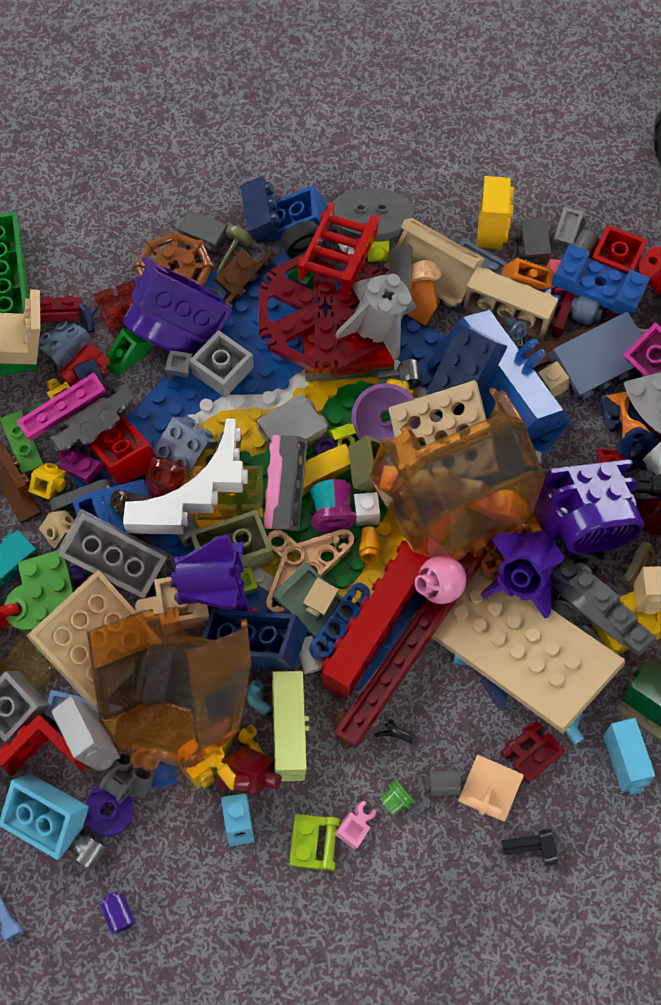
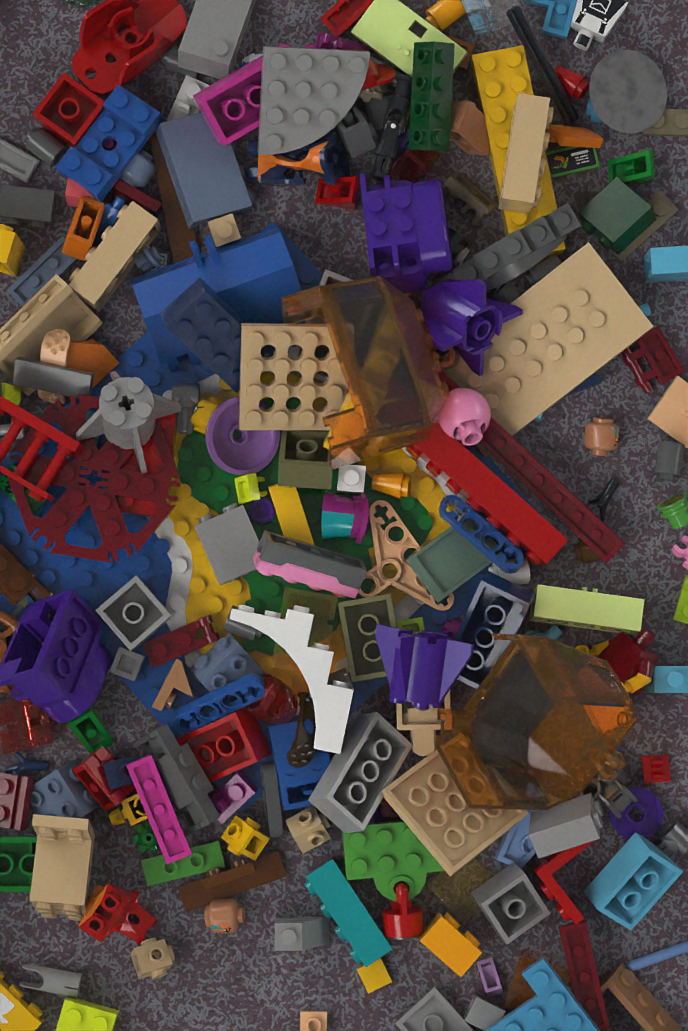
camera: 85 degrees left, 20 degrees up
(152, 823) = (655, 768): none -> red tile
(159, 432) = (217, 701): none -> blue beam
(170, 404) = (176, 679): none -> medium nougat slope
(204, 405) = (180, 642): none -> dark red plate
(320, 598) = (454, 550): tan brick -> none
(452, 717) = (601, 435): none -> nougat head

